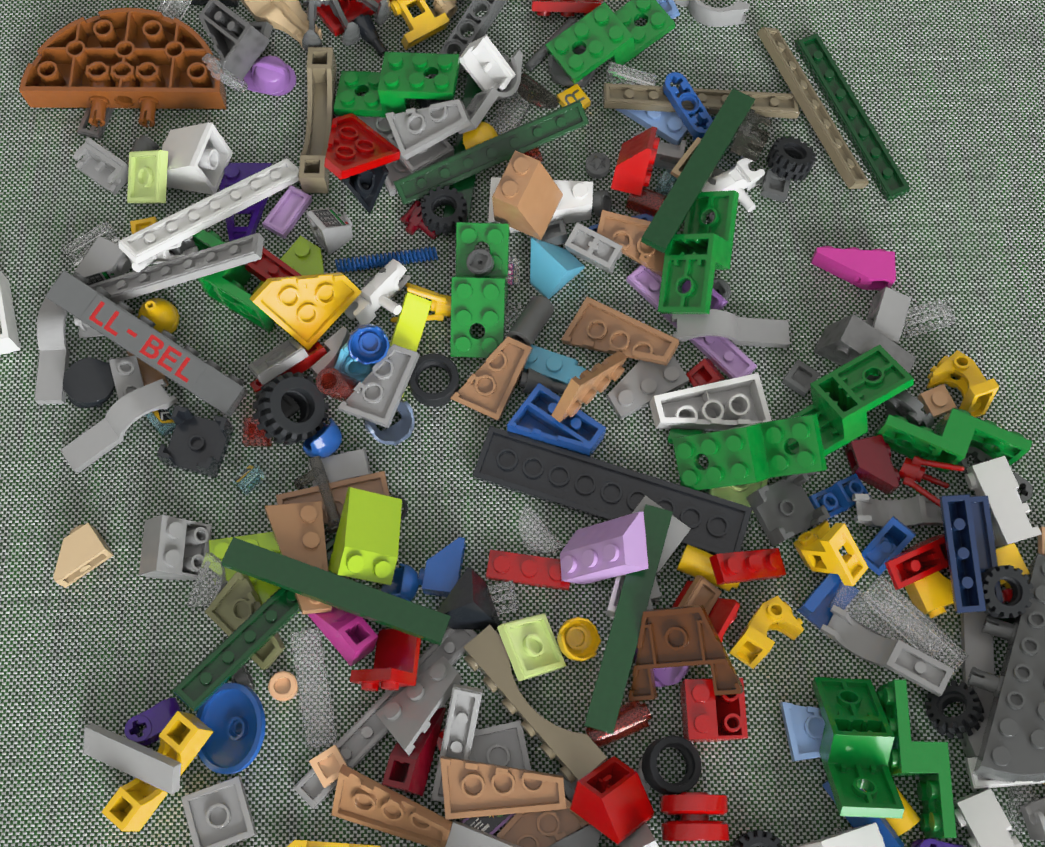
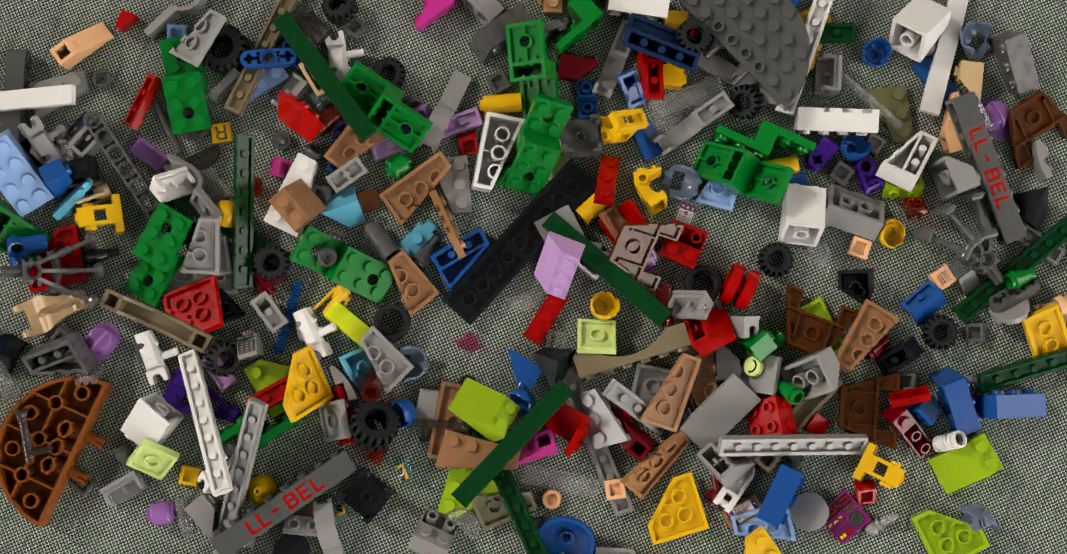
camera: 65 degrees left, 15 degrees up
(85, 215) = (161, 512): none -> medium lavender head
(105, 42) = (29, 452): none -> clear smoke piece
(273, 133) = (150, 355): none -> white piece
(300, 185) = (212, 354): none -> black tyre
(368, 344) = (354, 356): blue hair -> none
(383, 230) = (269, 311): none -> light grey slope
(450, 486) = (468, 342): none -> clear pink tile
(511, 35) = (149, 154): none -> medium lavender tile
(564, 171) = (280, 167): none -> dark pink tile
(575, 290) = (369, 200): none -> reddish brown slope
(634, 303) = (398, 165): none -> green head
(636, 757) = (690, 304): none -> light grey hinge
(664, 22) = (200, 40): none -> light grey wing
(675, 43) = (231, 61): none -> black tyre
(756, 247) = (394, 64): none -> black tyre
(762, 698) = (686, 211): none -> clear tile
(777, 392) = (501, 103): none -> yellow brick
(800, 684) = (689, 185): none -> sand blue helmet
(914, 471) = (592, 44): red plant -> none

